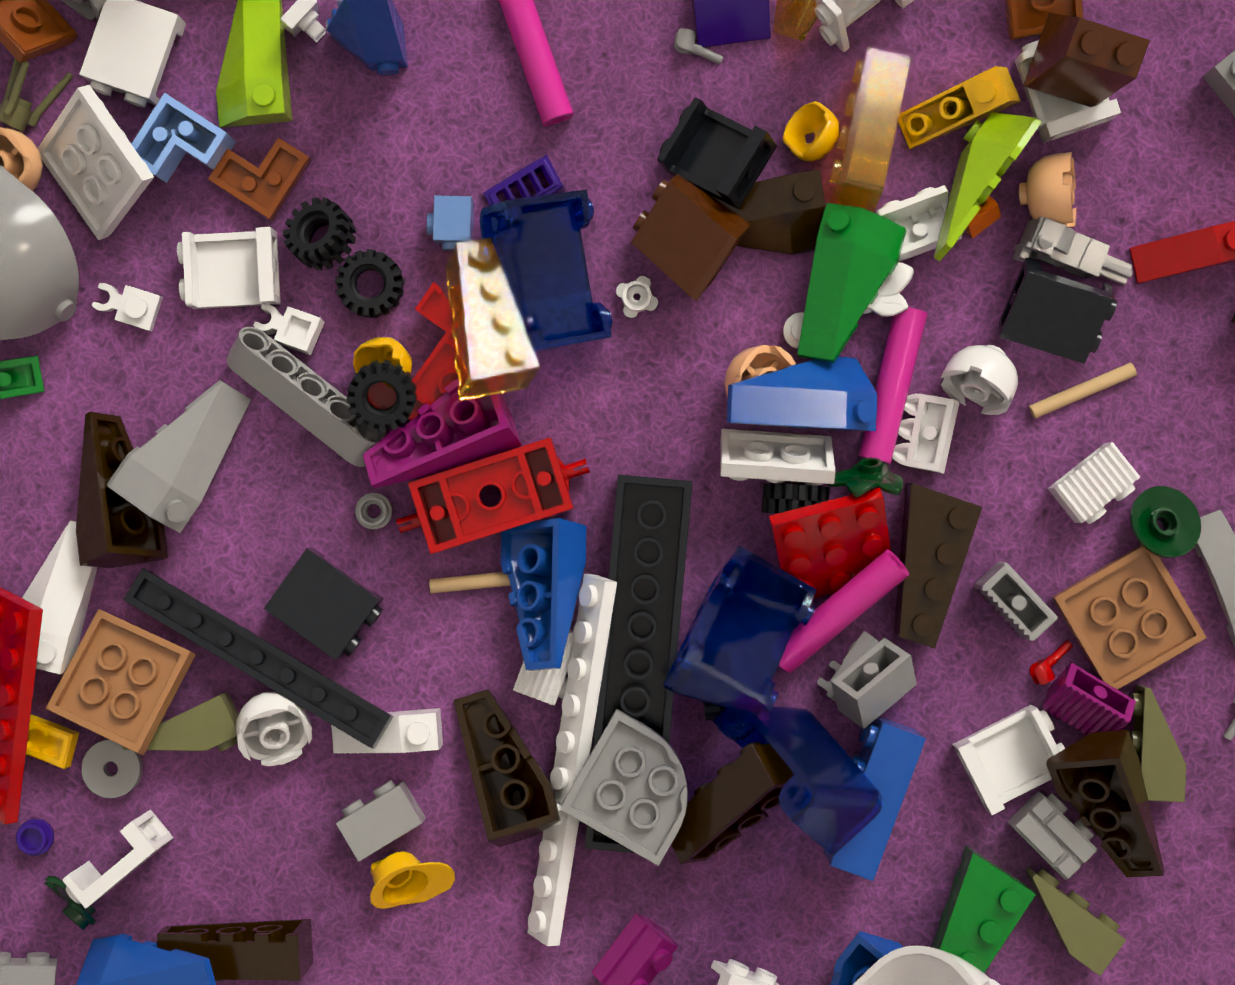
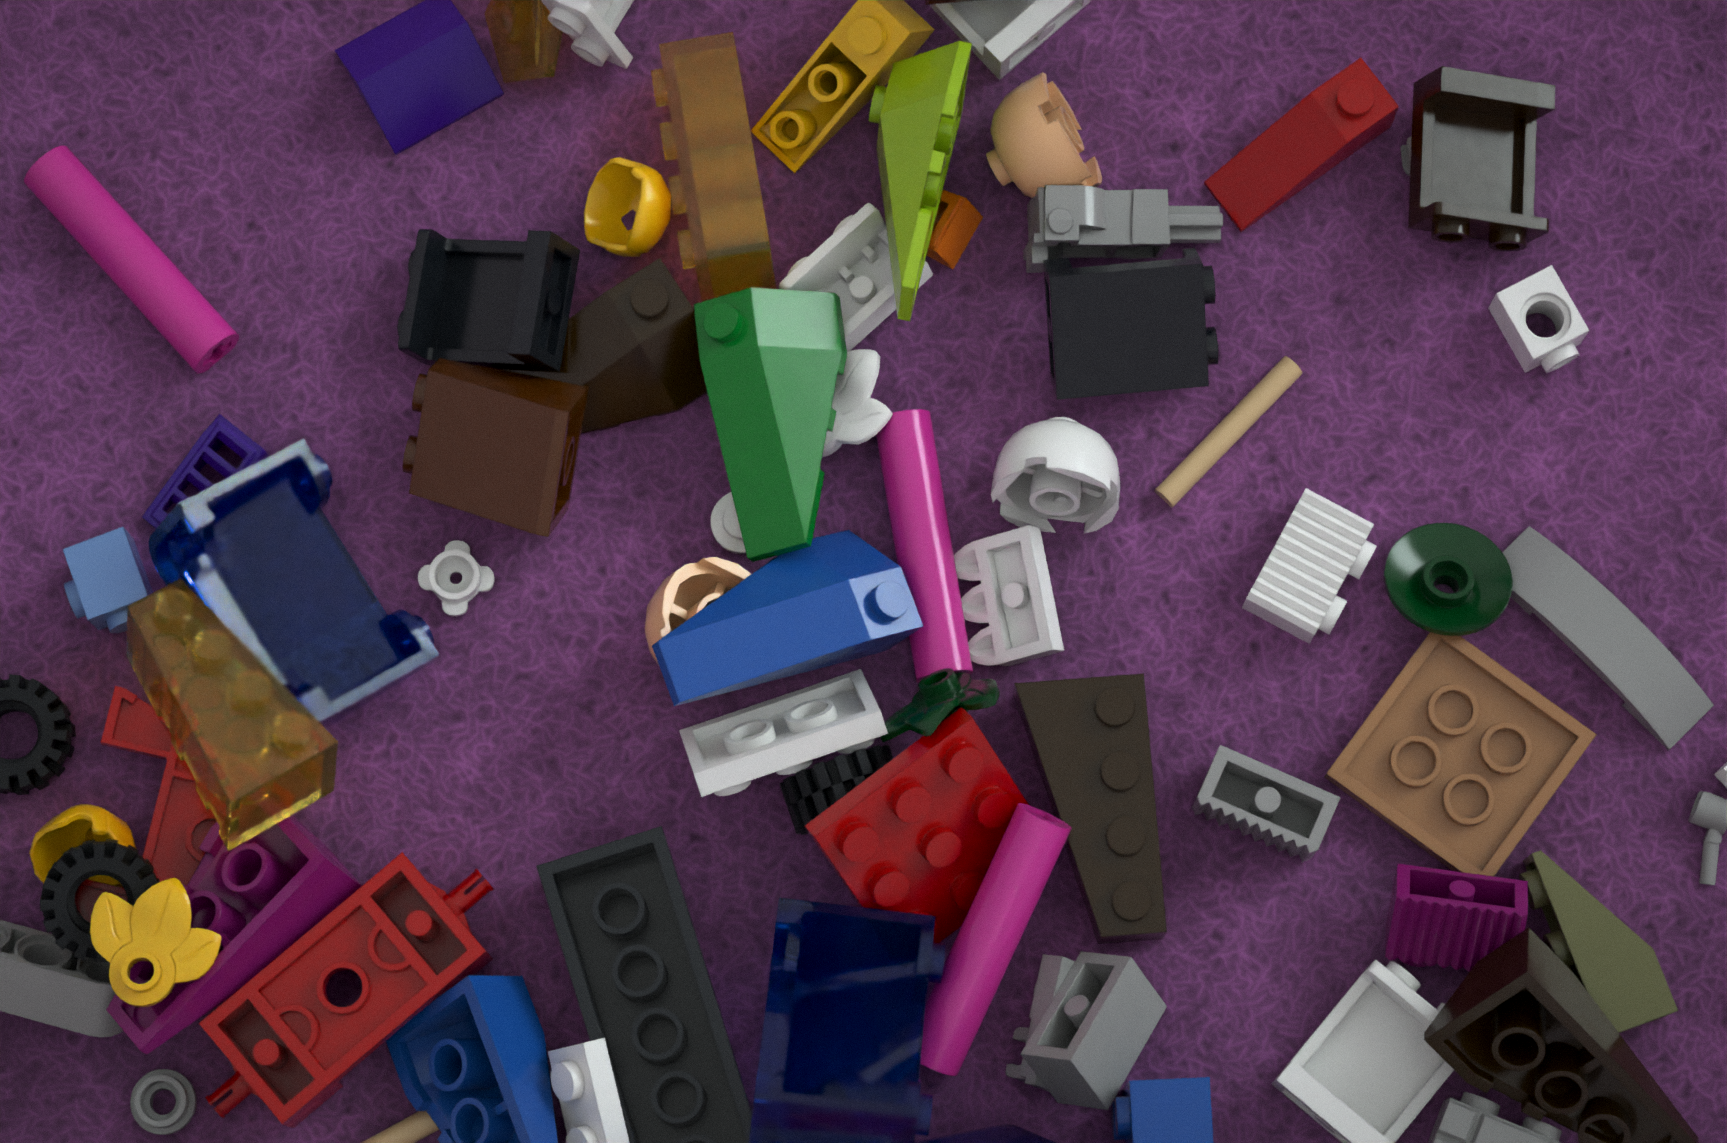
camera: 20 degrees left, 10 degrees down
(402, 426) = (153, 932): none -> yellow plate
(686, 44) = (372, 154): light grey hand -> none
(1041, 670) = (1361, 901): red hand -> none

